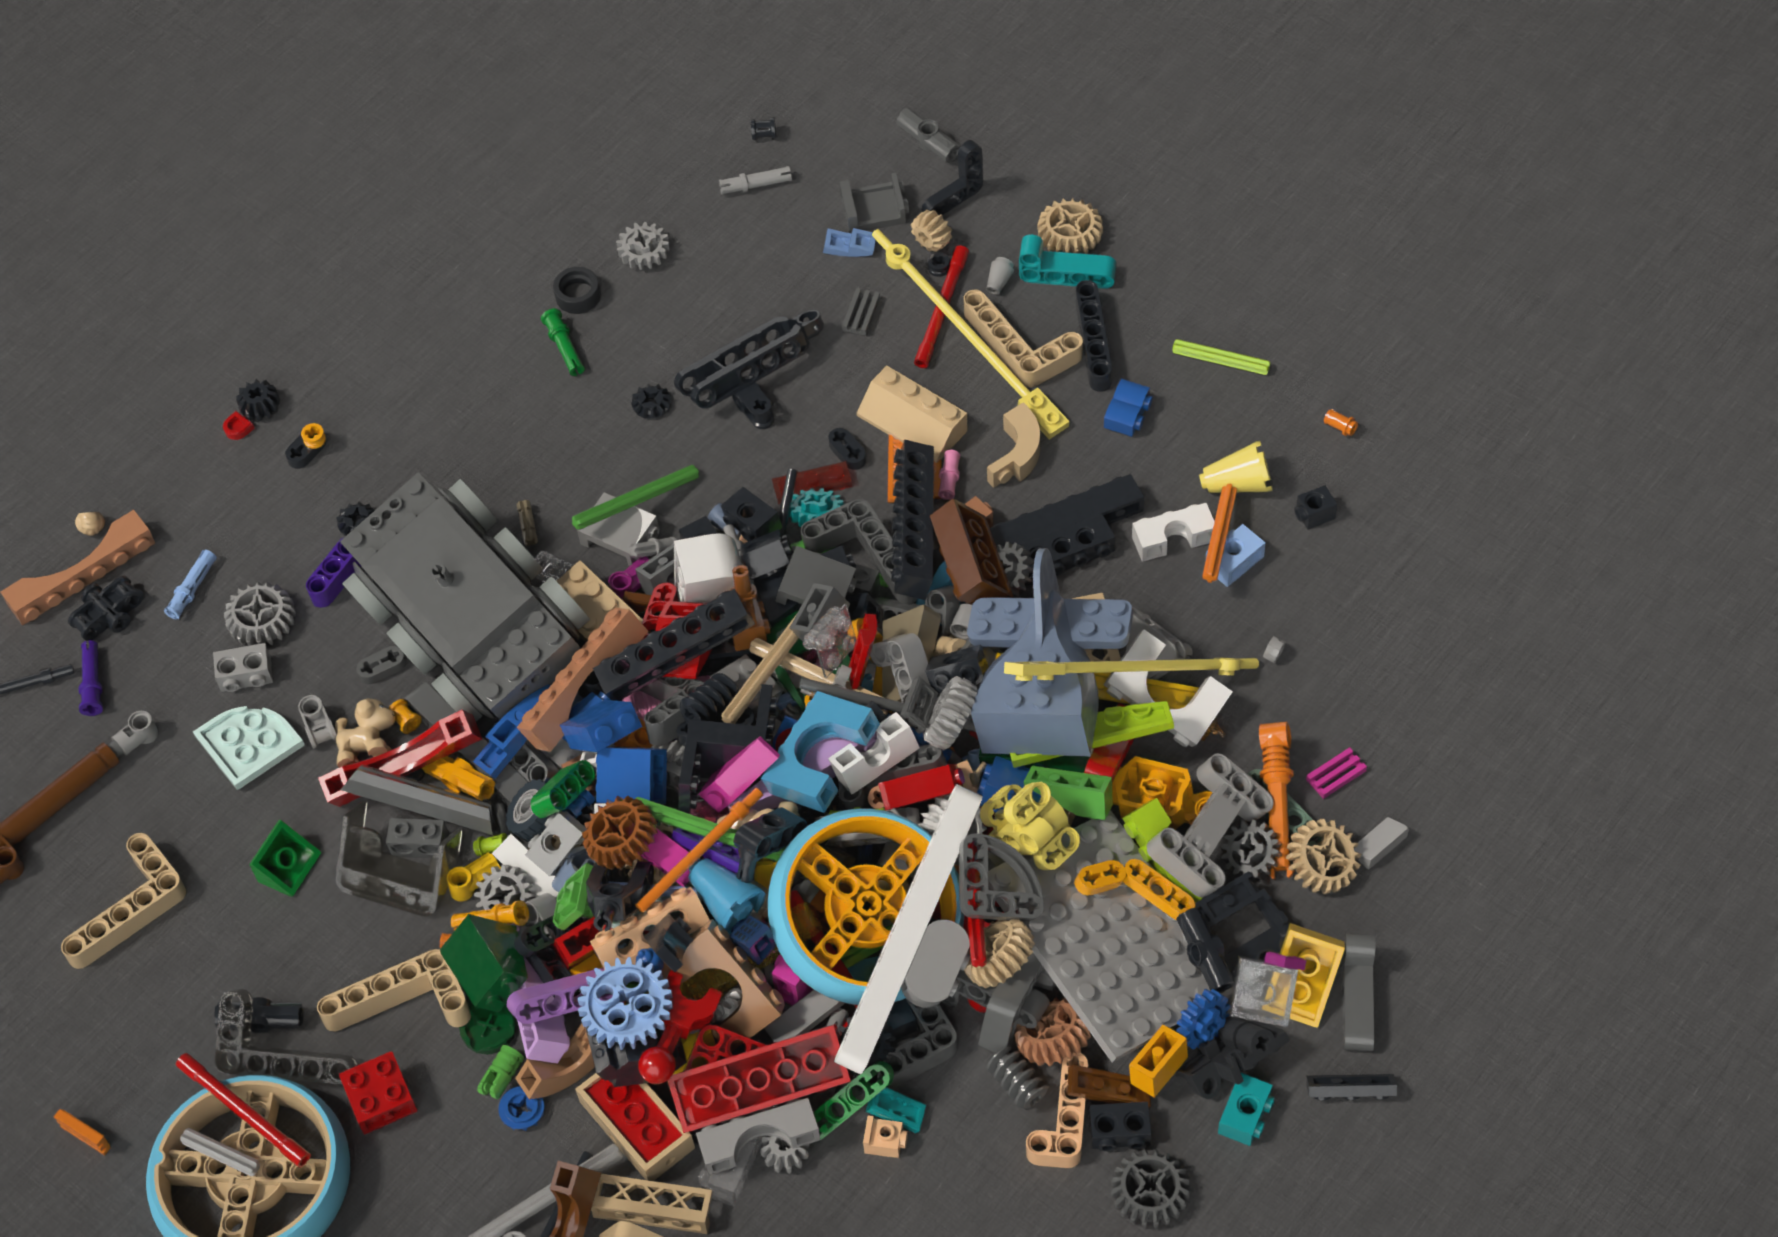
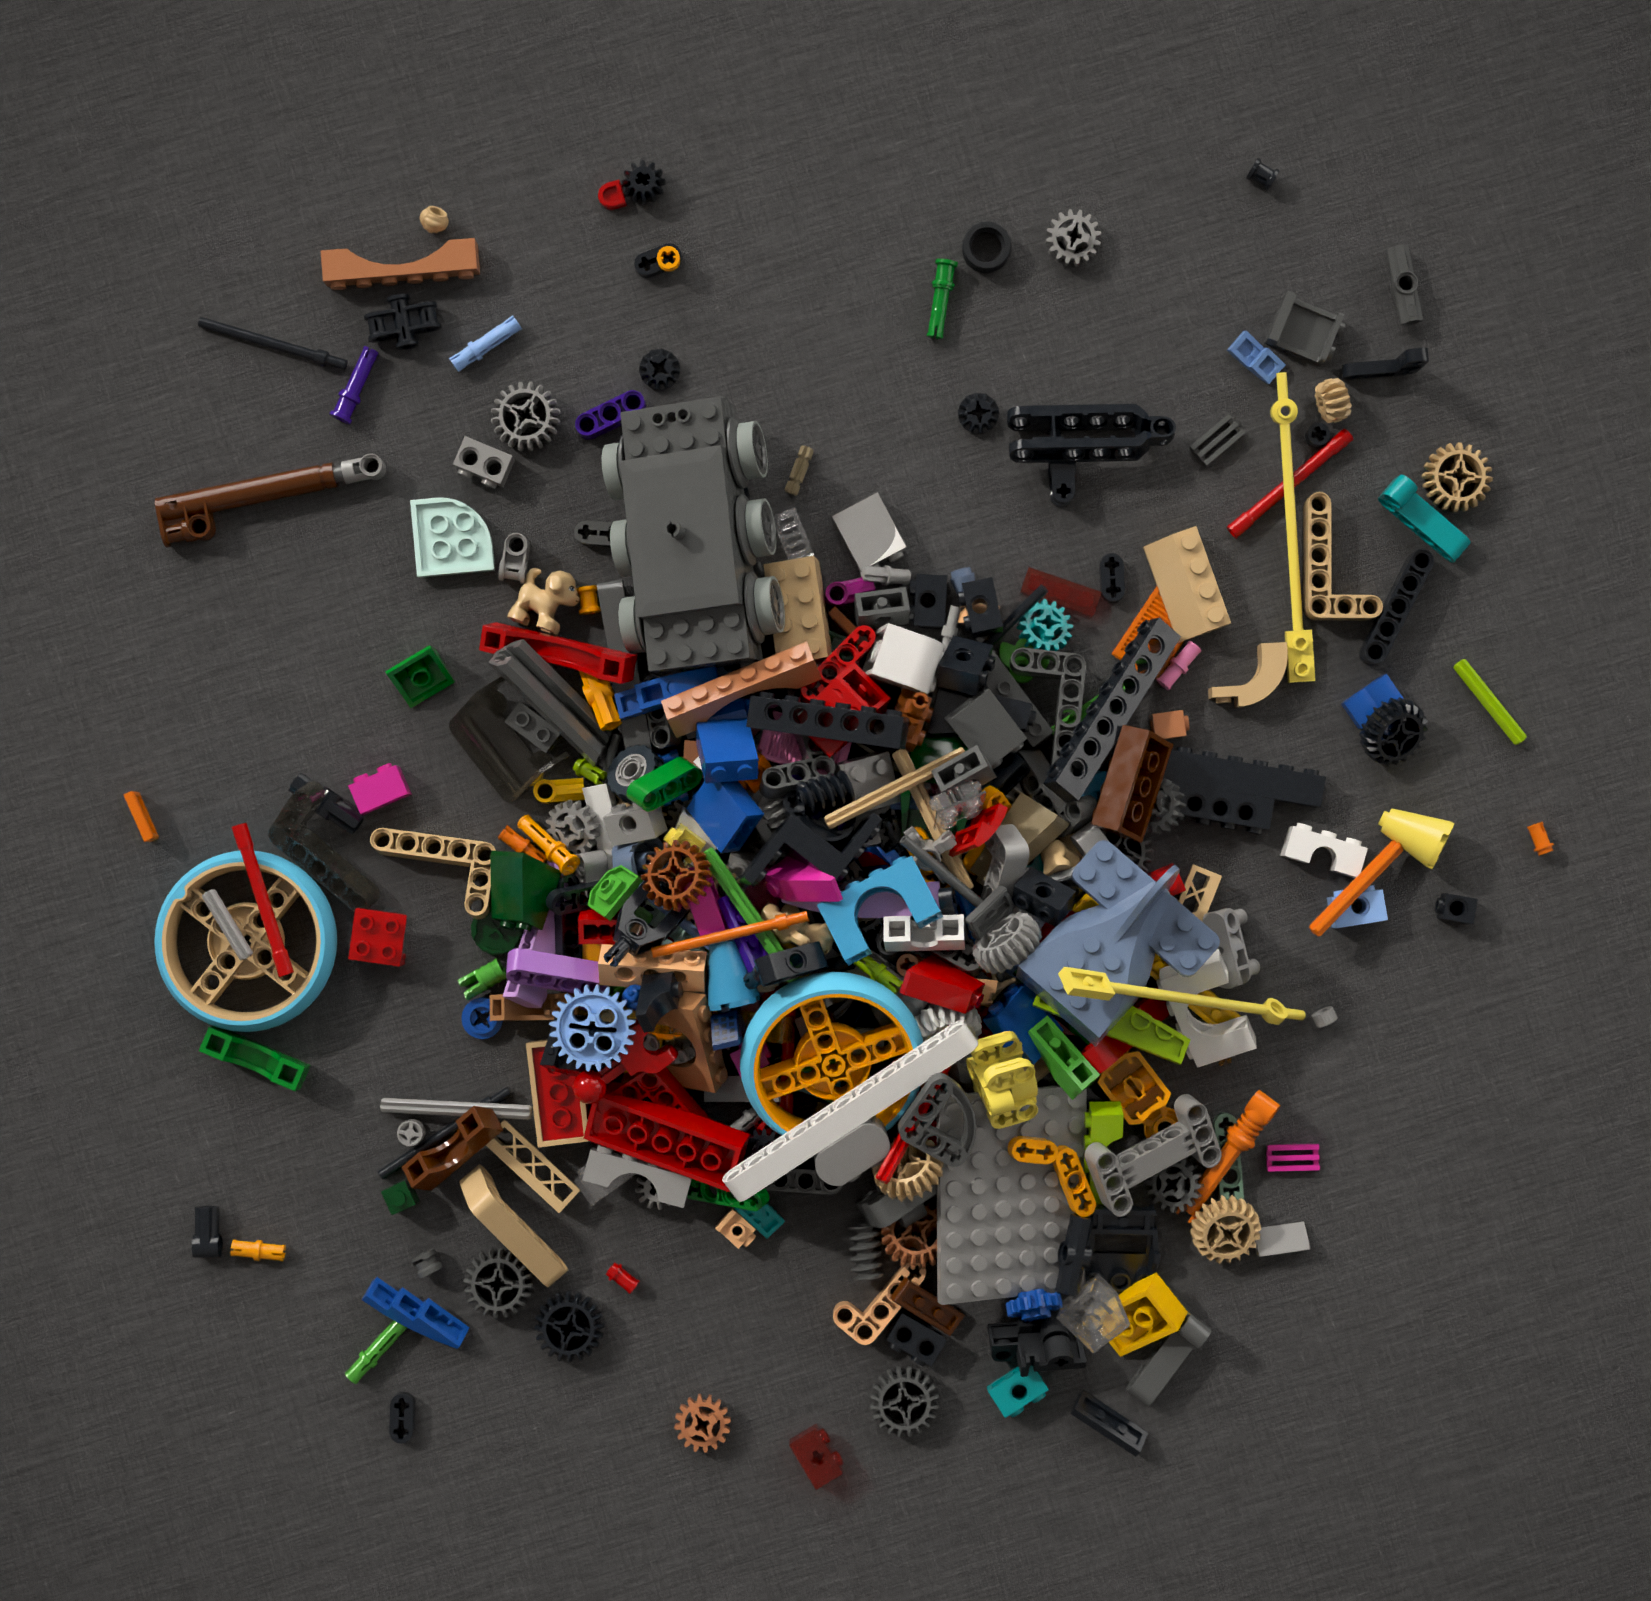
camera: 25 degrees right, 30 degrees up
(130, 906) = (279, 637): tan beam -> none
(303, 973) = (379, 789): none -> dark pink brick
(635, 497) = (899, 518): bright green axle -> none
(745, 182) = (1207, 225): light grey pin -> none
(999, 274) = (1361, 485): light grey cone -> none
(1158, 1060) = (976, 1317): light orange brick -> none
(1160, 427) = (1398, 736): none -> black gear
(1285, 961) = (1124, 1310): magenta tile -> none

